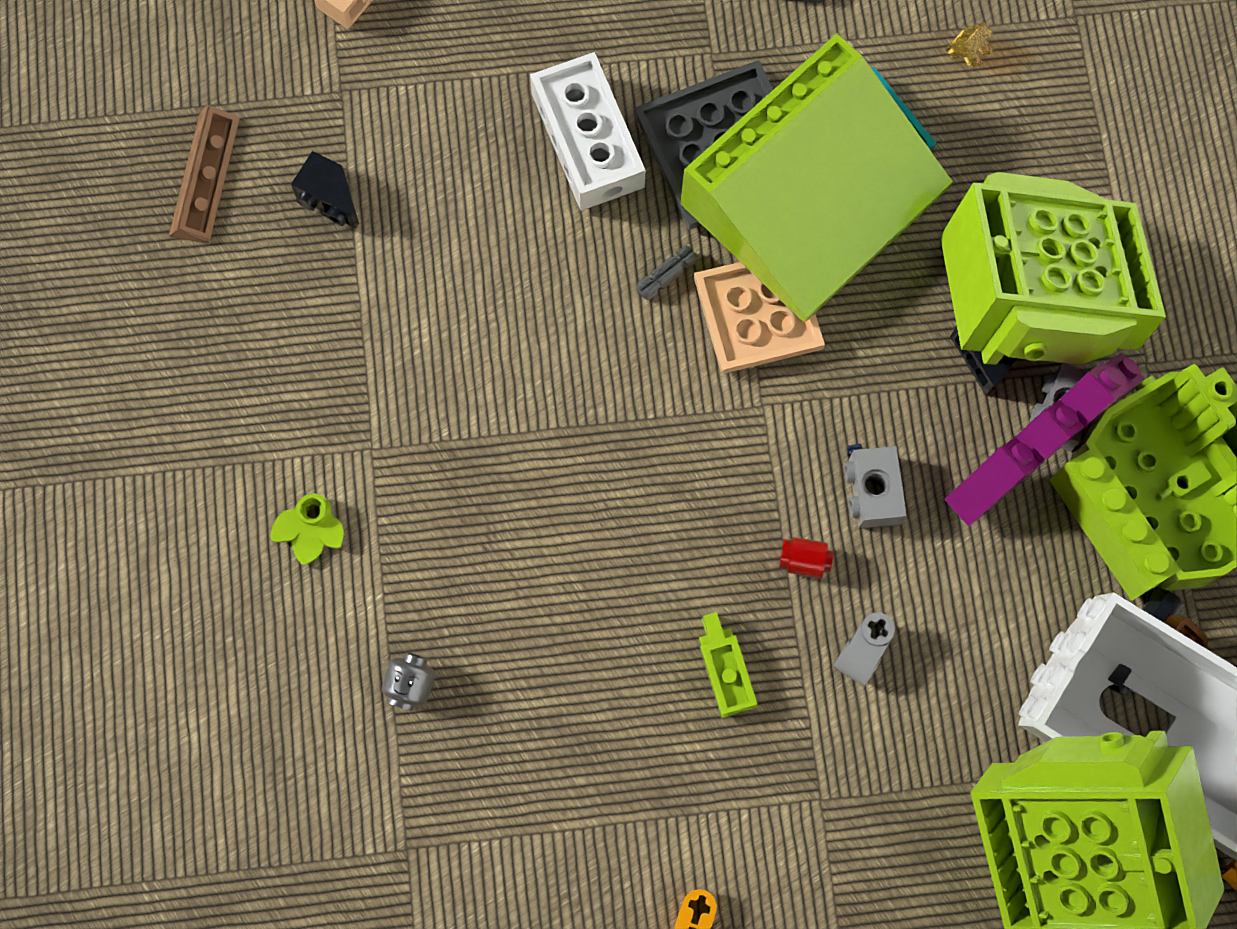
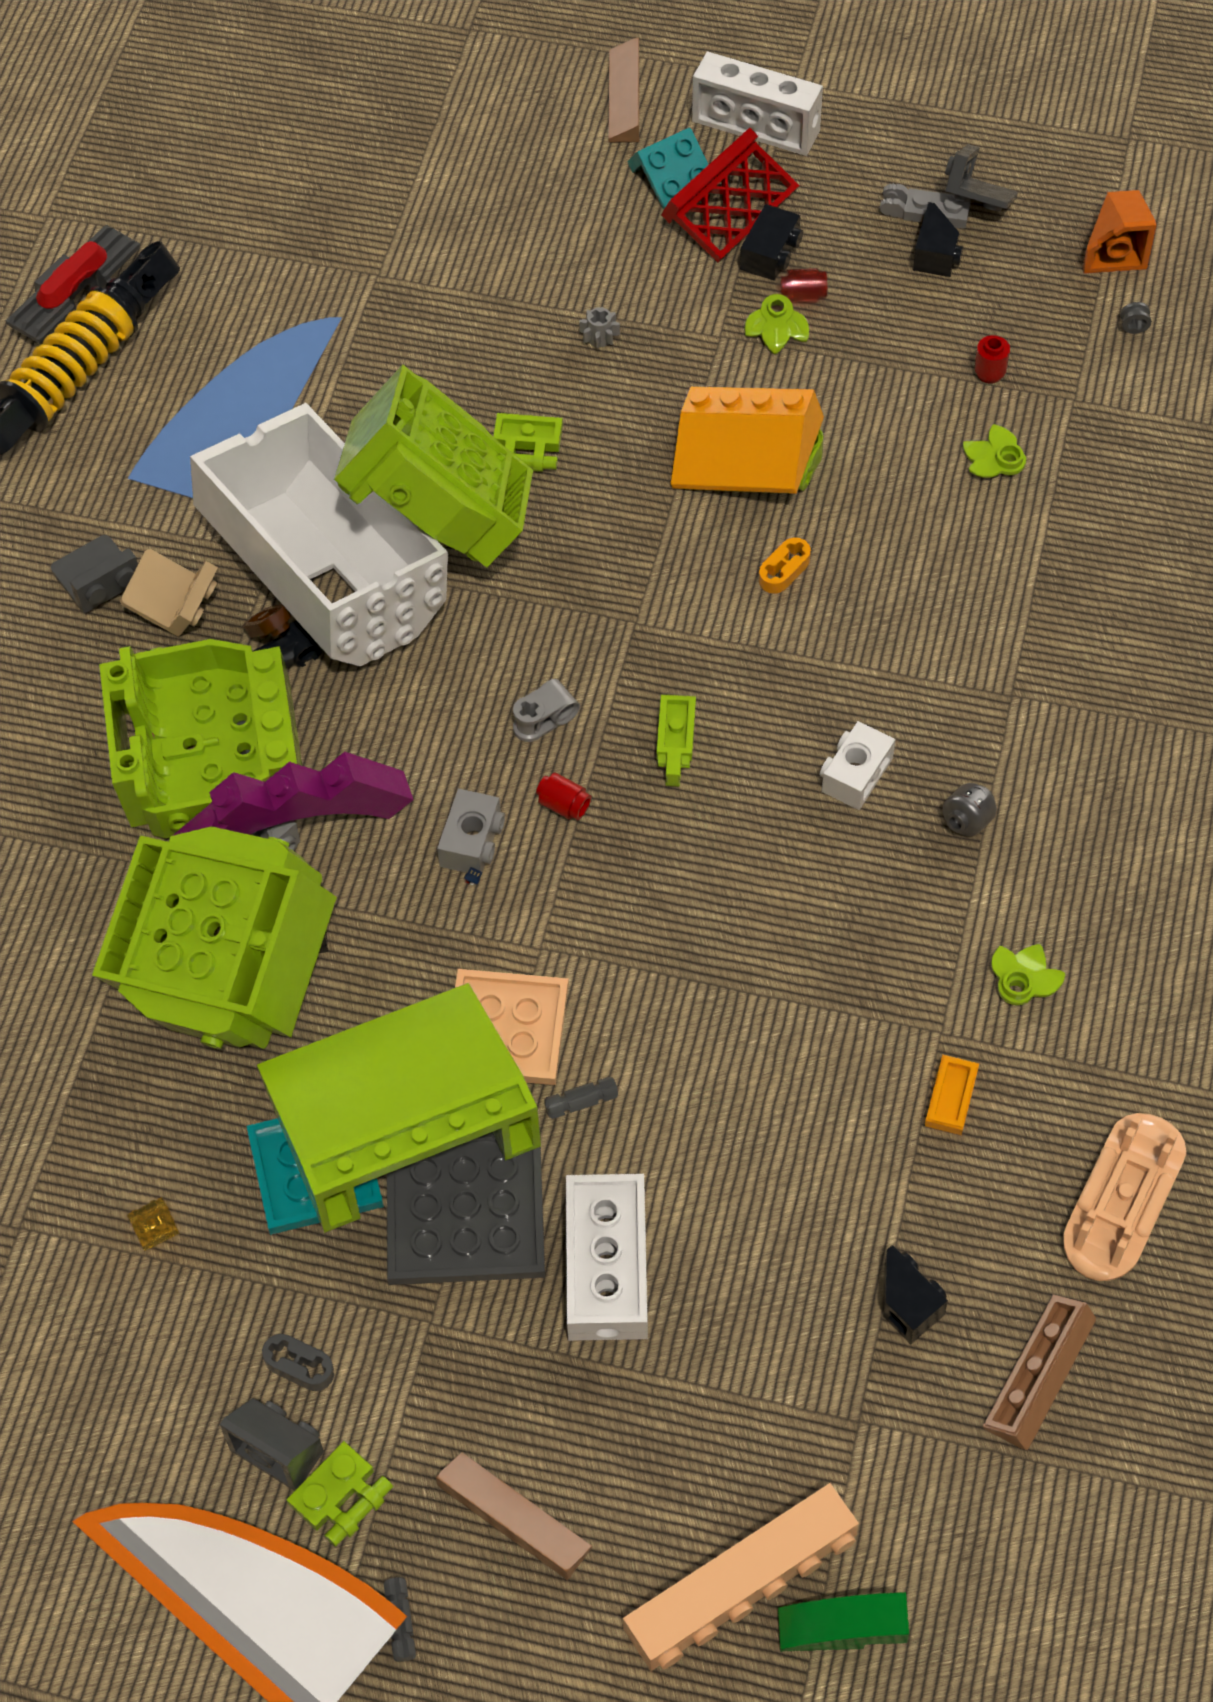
camera: 155 degrees left, 15 degrees down
(166, 347) = (1123, 1196): none -> light nougat piece
(343, 389) = (951, 1095): none -> light orange tile
(530, 672) = (855, 783): none -> white brick

